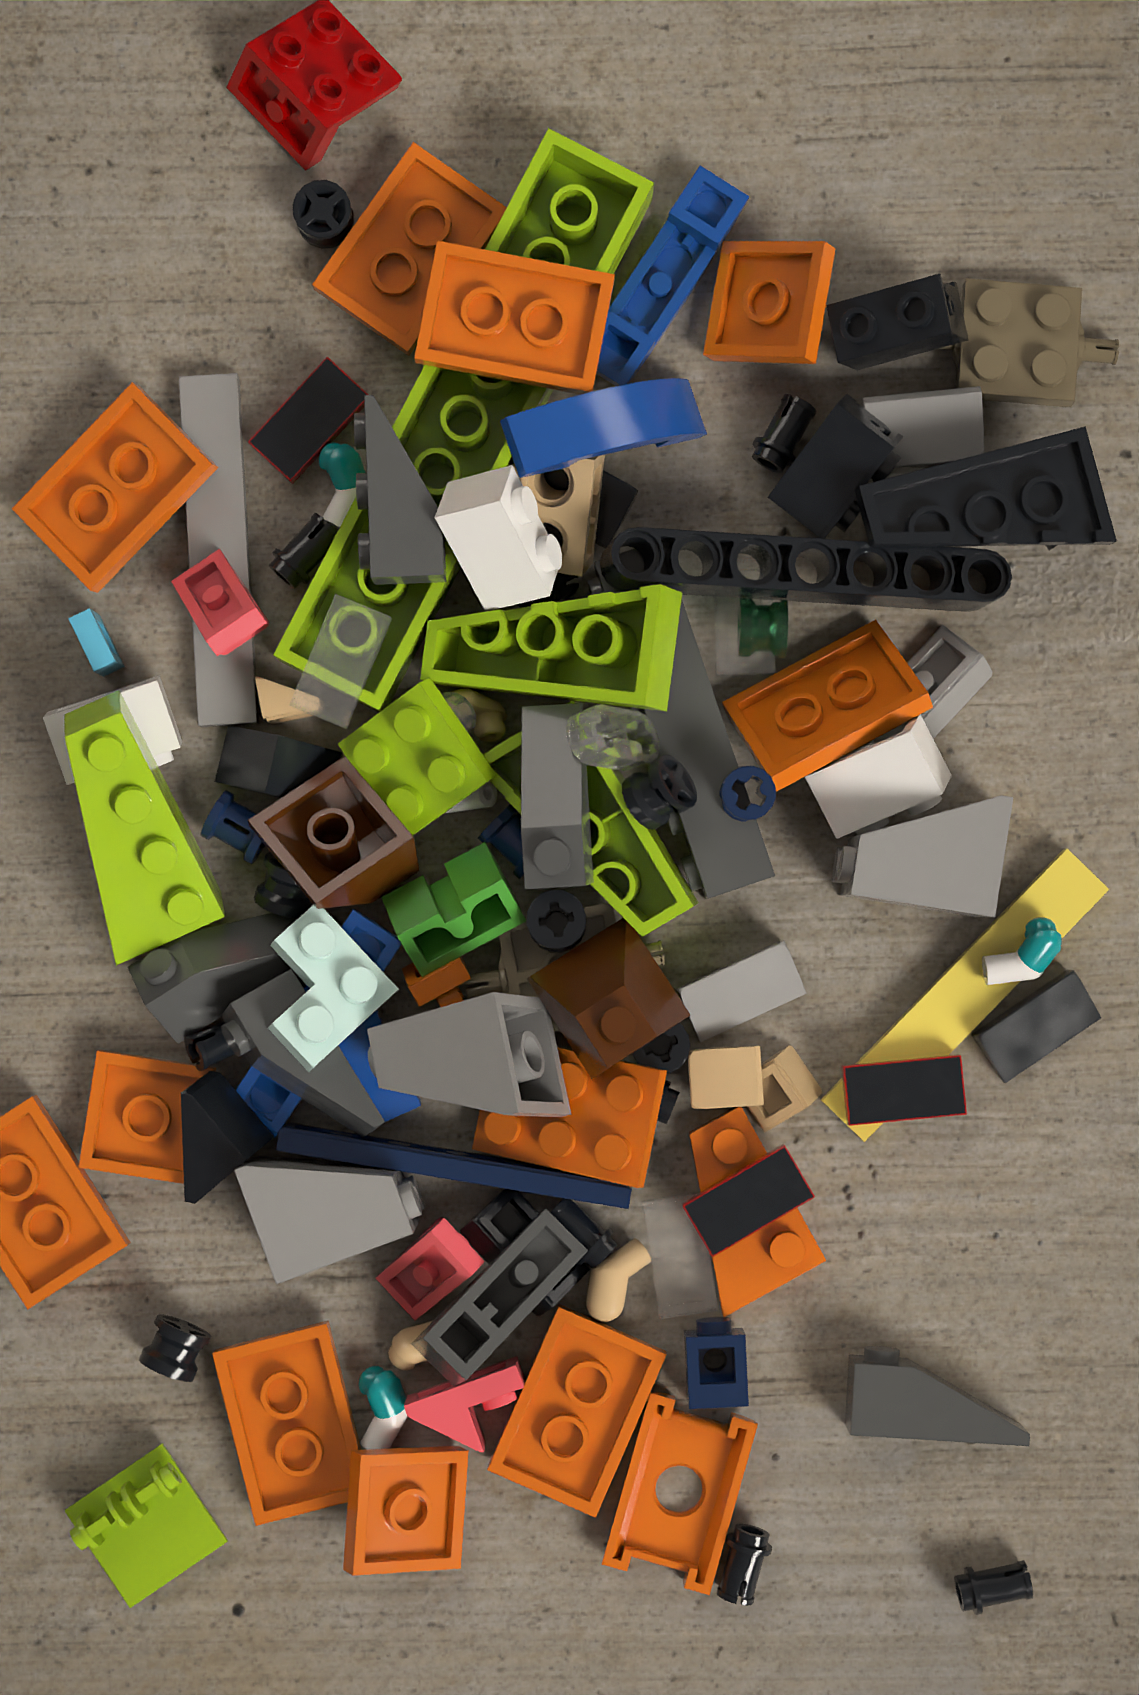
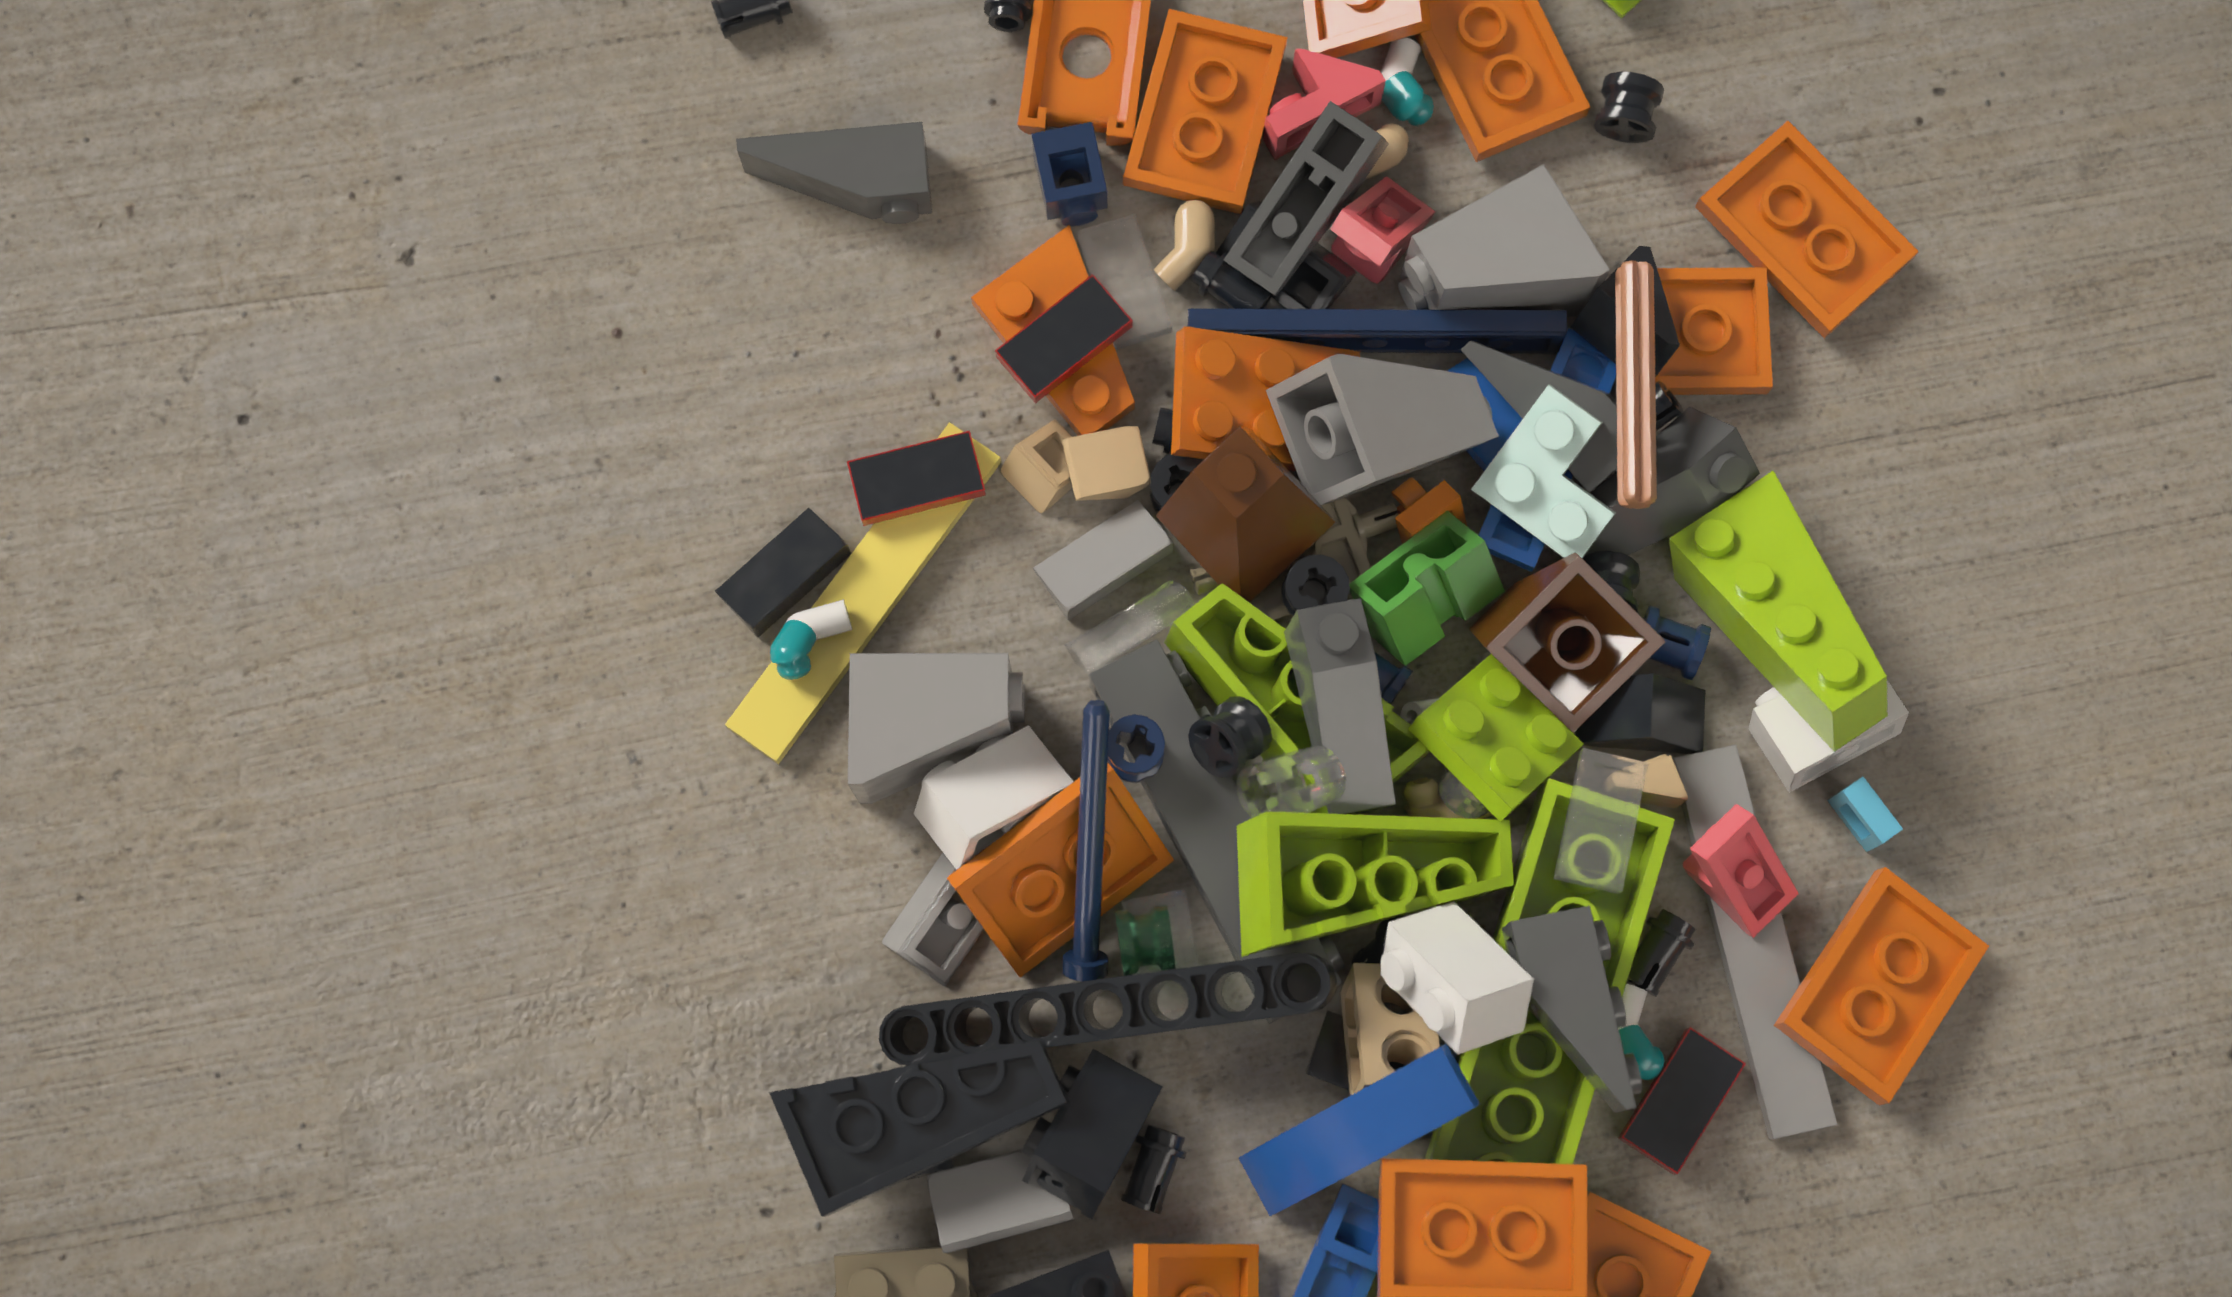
camera: 170 degrees right, 10 degrees down
(232, 1056) = (1635, 385): none -> nougat axle
(728, 919) = (1130, 626): none -> clear tile
(815, 624) = (1085, 960): none -> dark blue bar

